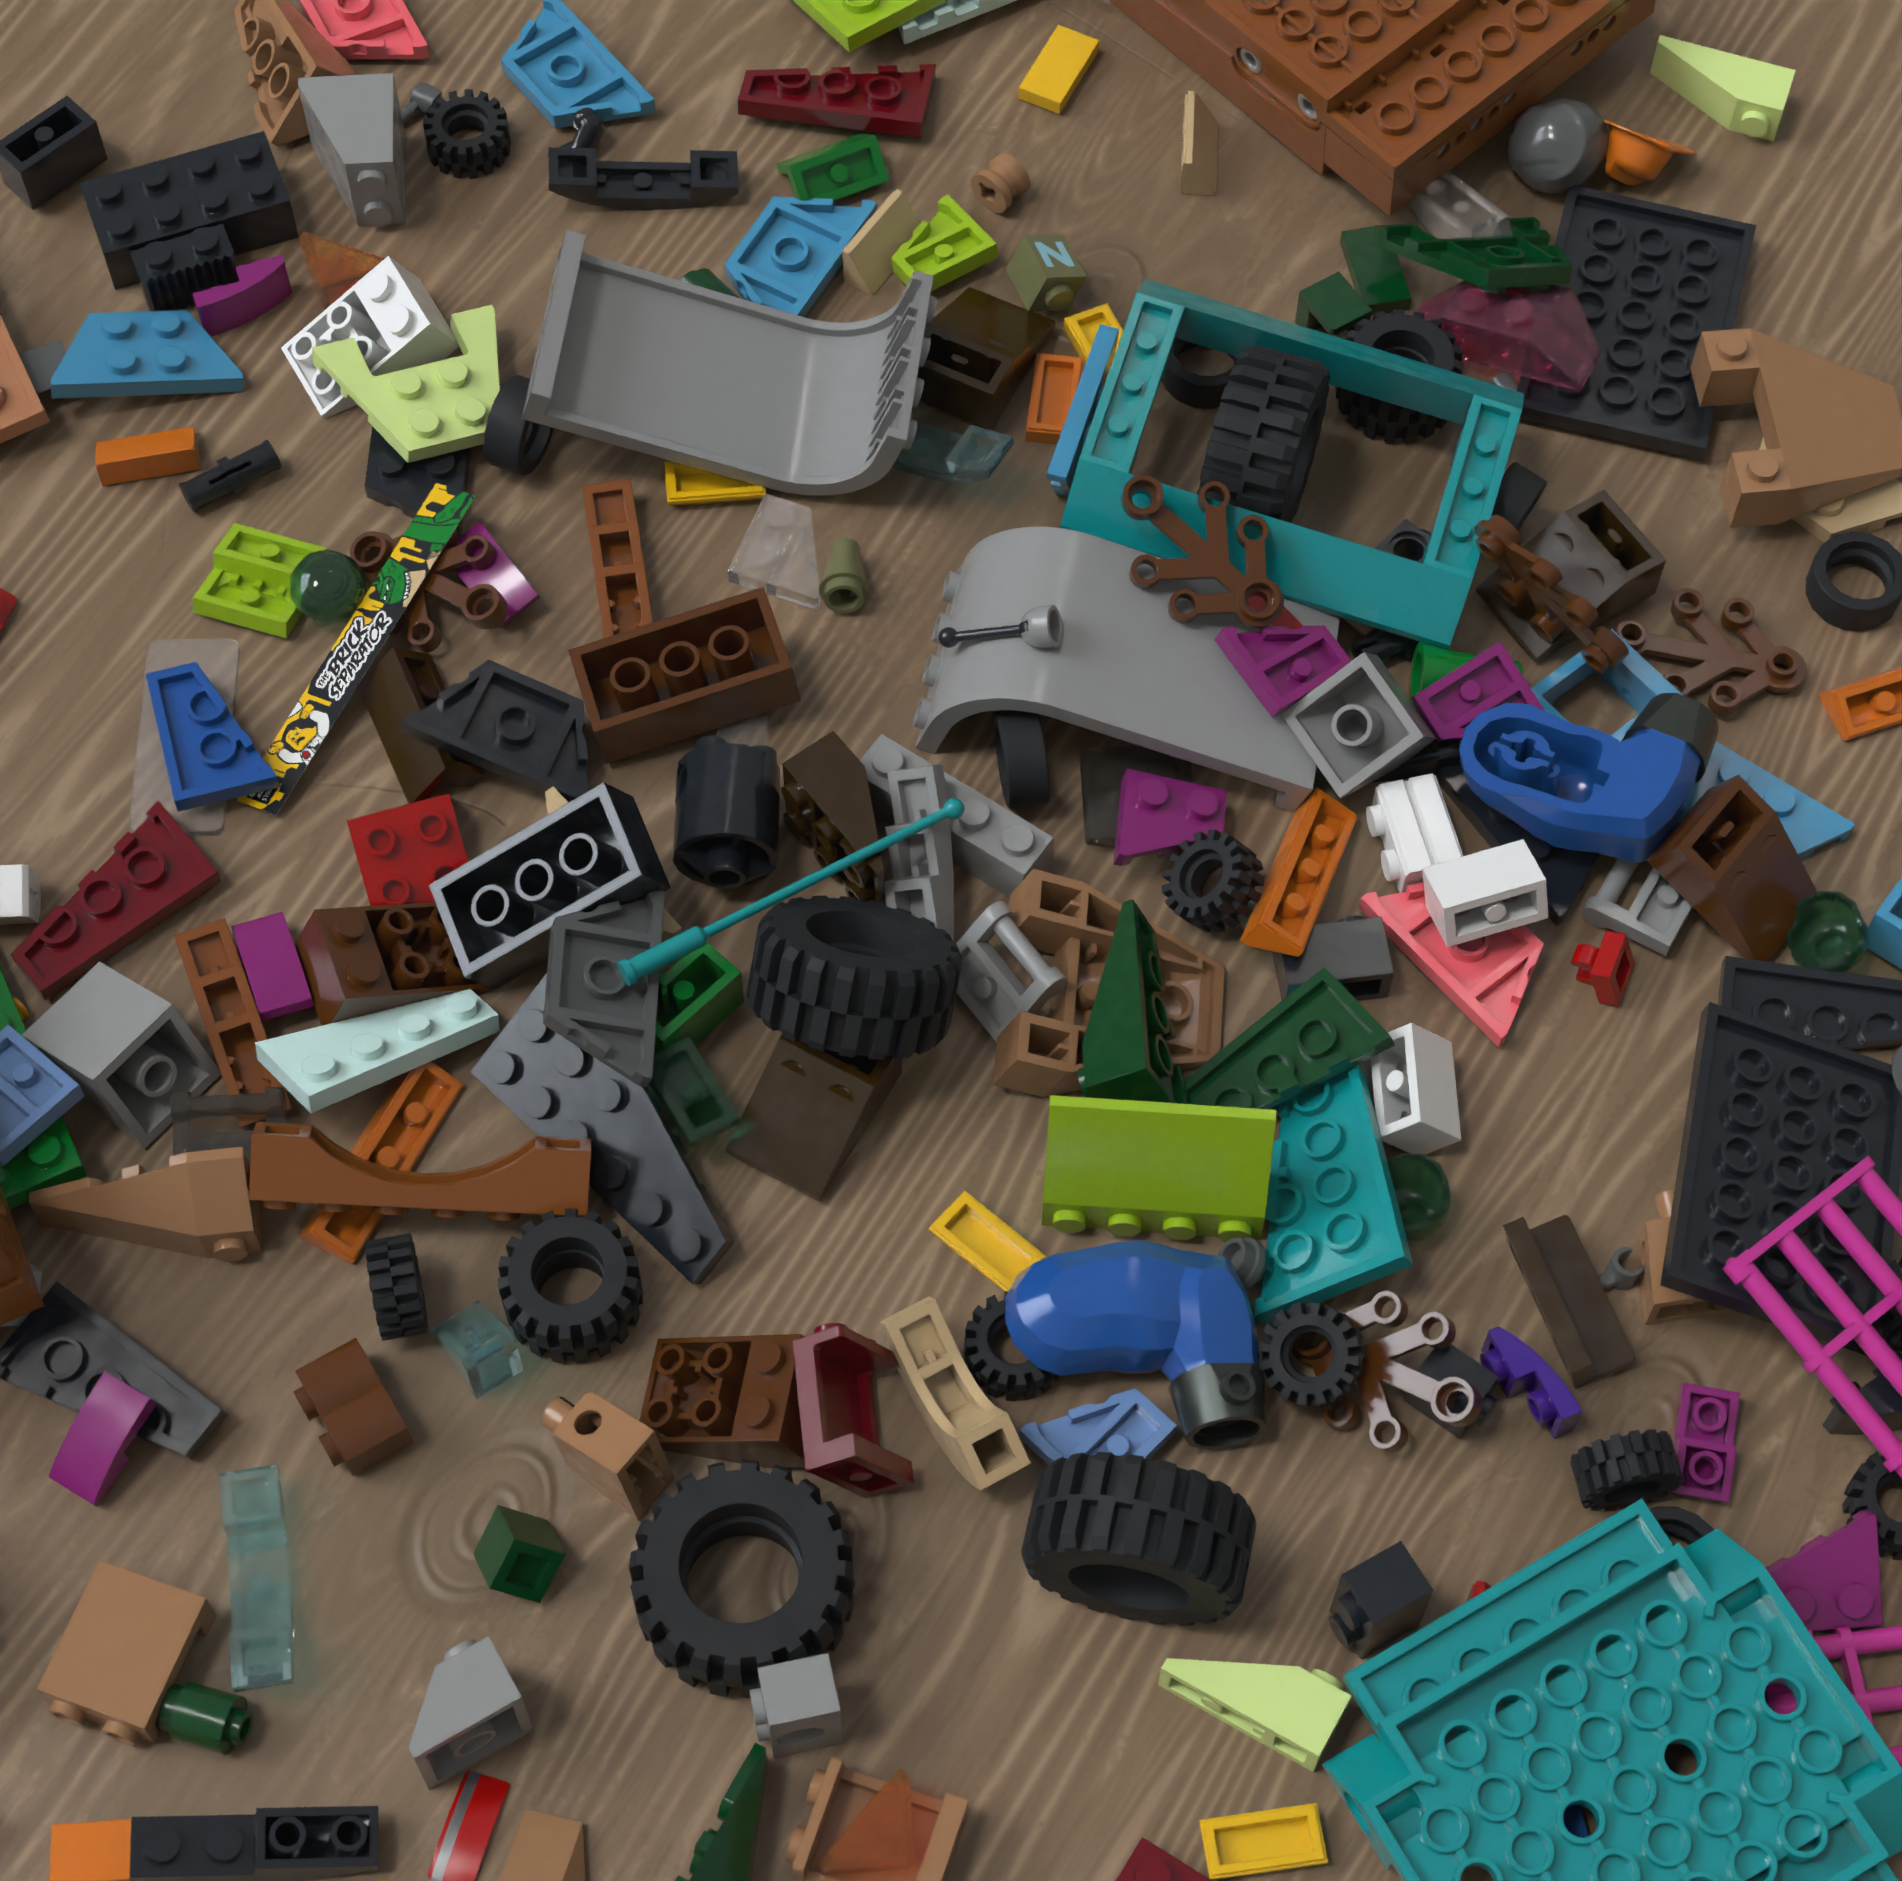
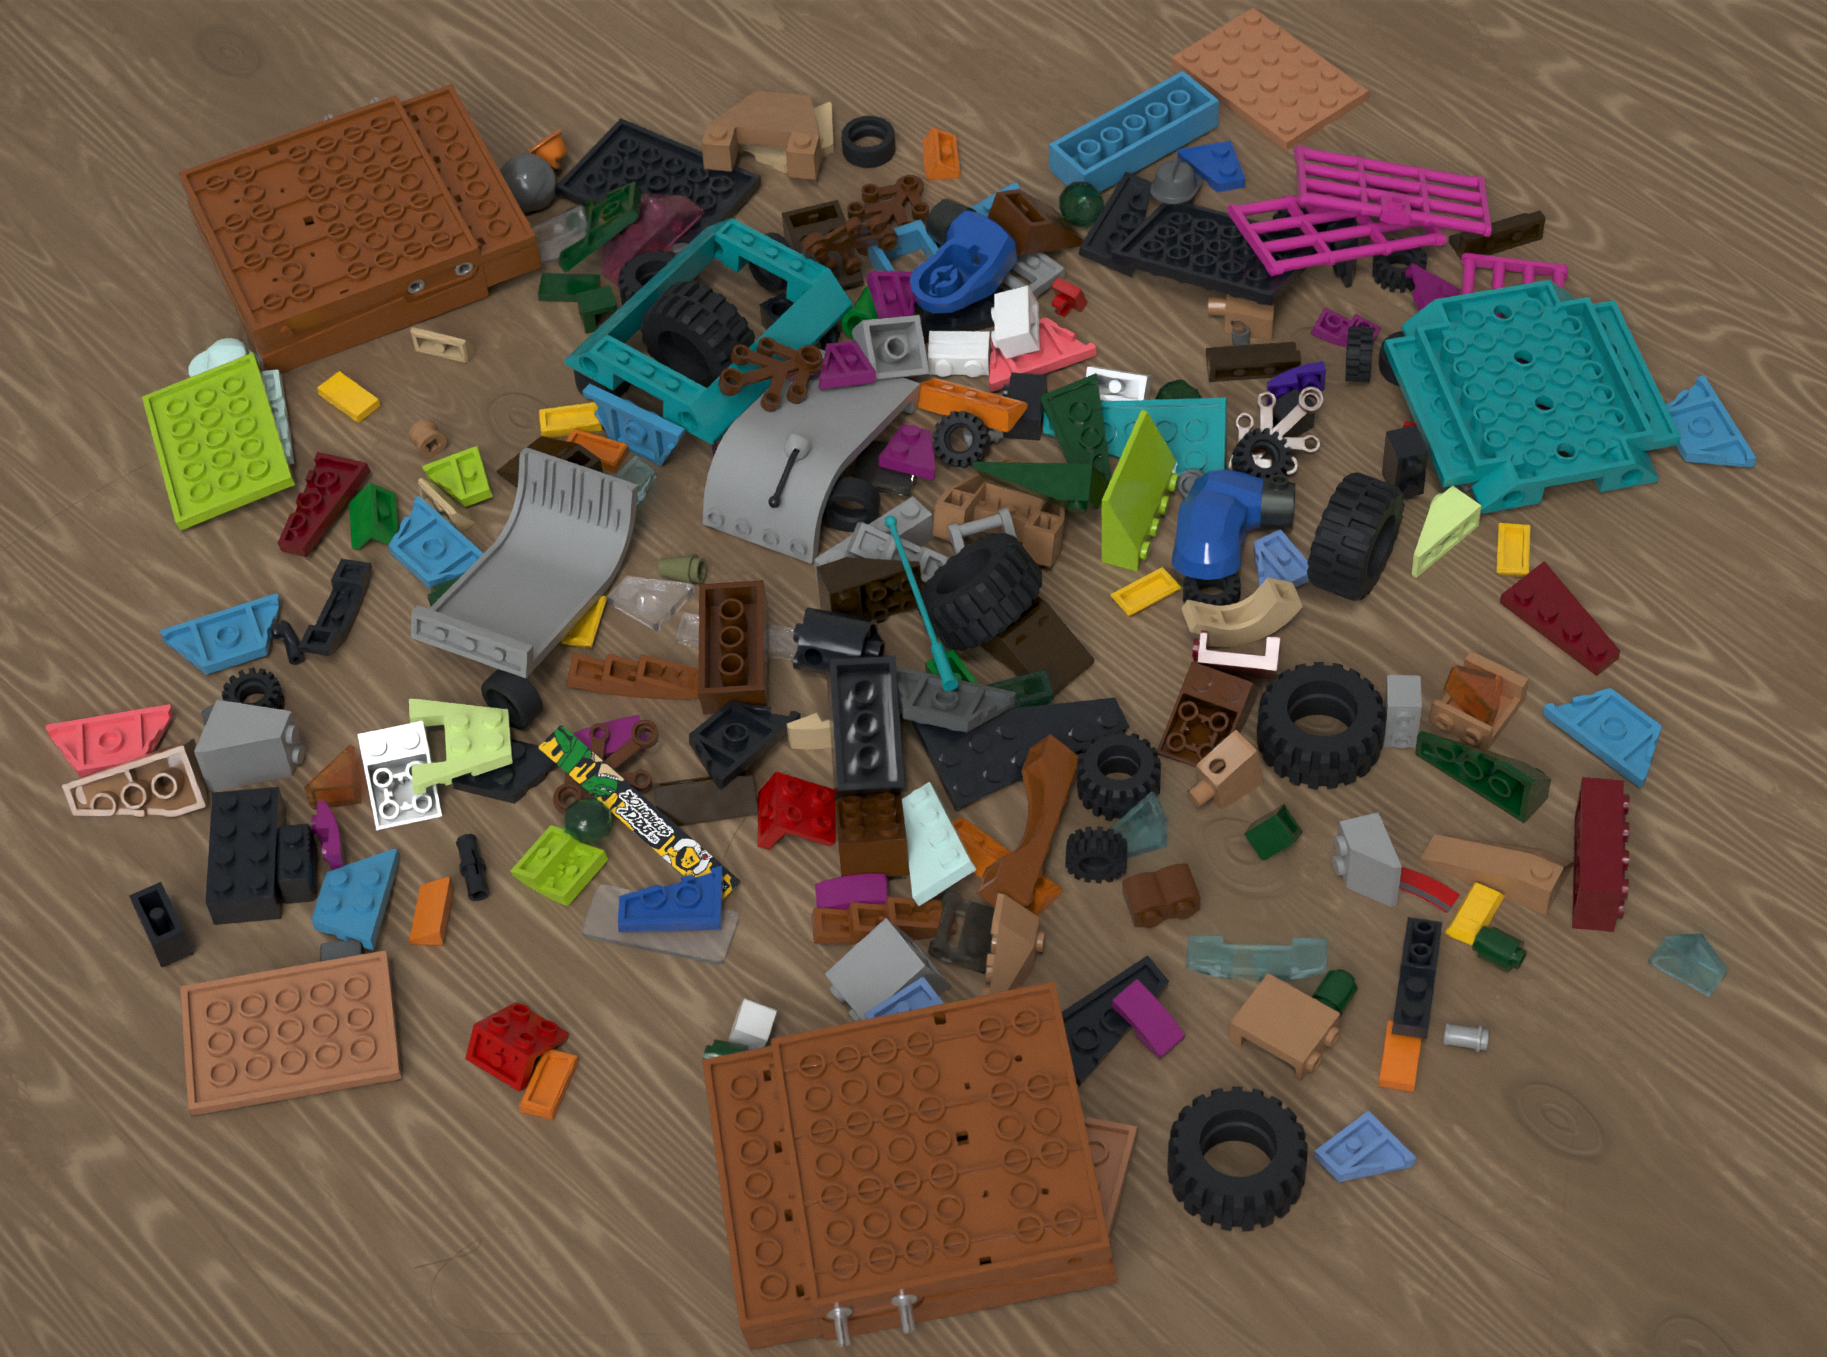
camera: 70 degrees left, 10 degrees down
(131, 893) = (773, 966): dark red wing -> none
(1045, 272) = (510, 428): olive brick -> none
(1727, 87) = (517, 106): yellowish green slope -> none

